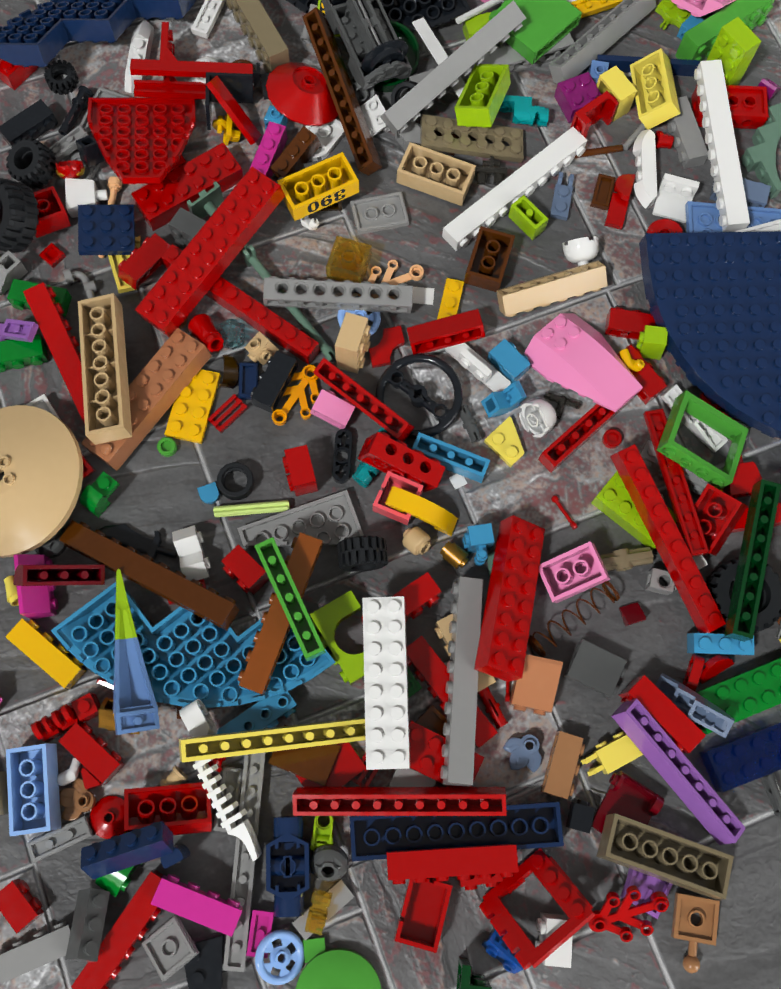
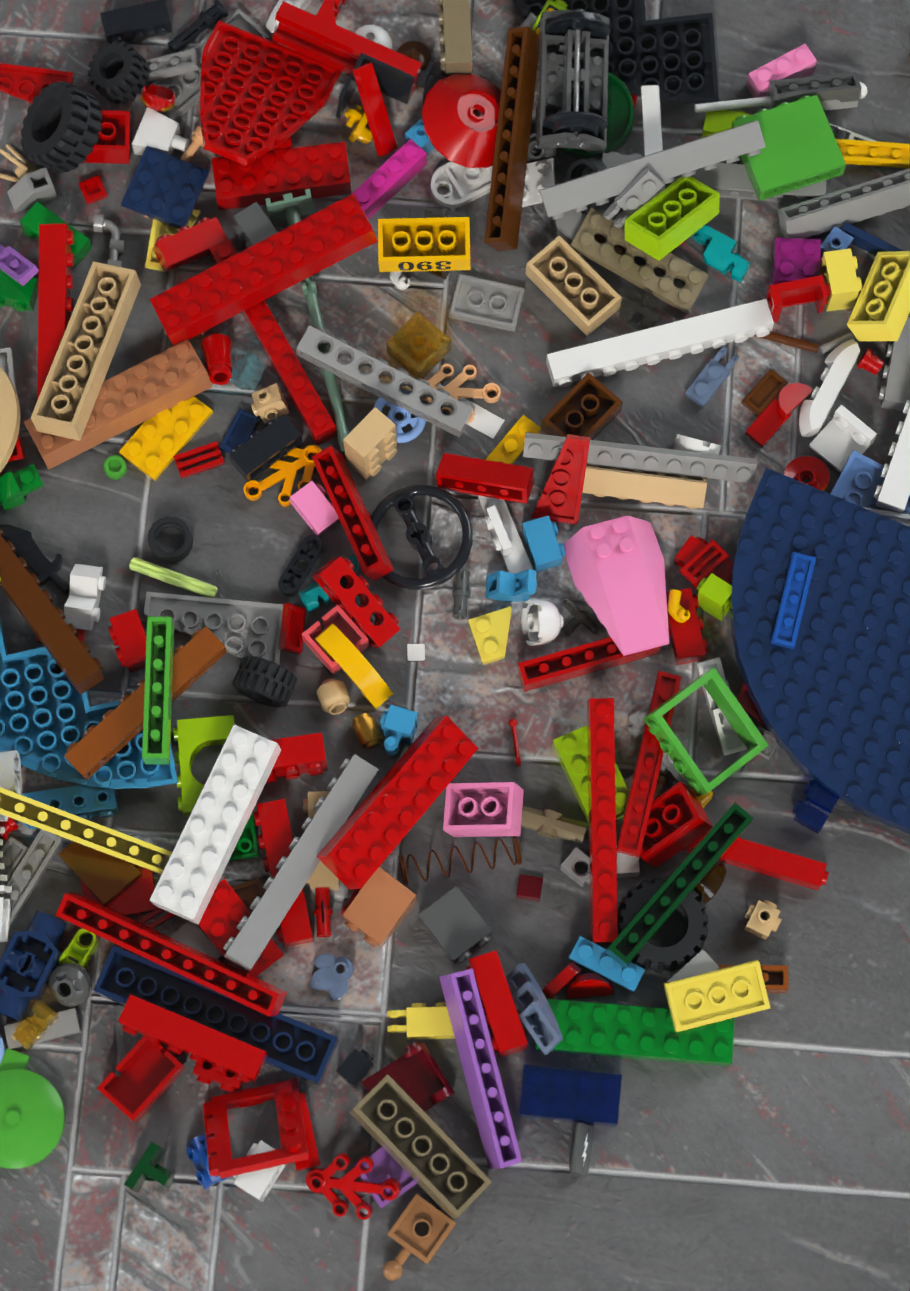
camera: 30 degrees right, 0 degrees up
(89, 151) = (188, 86): black brick -> none
(209, 493) = (135, 540): dark azure tile -> none
(231, 372) = (224, 415): dark brown helmet -> none
(296, 154) = (421, 193): reddish brown brick -> none
(301, 475) = (244, 560): red brick -> none
(360, 504) = (292, 628): none -> red tile
(391, 340) = (406, 468): red tile -> none
(451, 91) = (634, 197): none -> light grey hinge
(452, 457) = (417, 622): dark azure brick -> none
(506, 308) = (565, 483): none -> red wing
(528, 217) = (653, 385): lime brick -> none
(548, 268) = (648, 458): none -> light grey plate
(563, 765) = (365, 1006): medium nougat brick -> none
(612, 438) = (614, 685): red tile -> none
(626, 336) = (690, 576): none -> red tile
(715, 317) = (793, 600): none -> blue tile
(744, 479) = (738, 791): red torso -> none

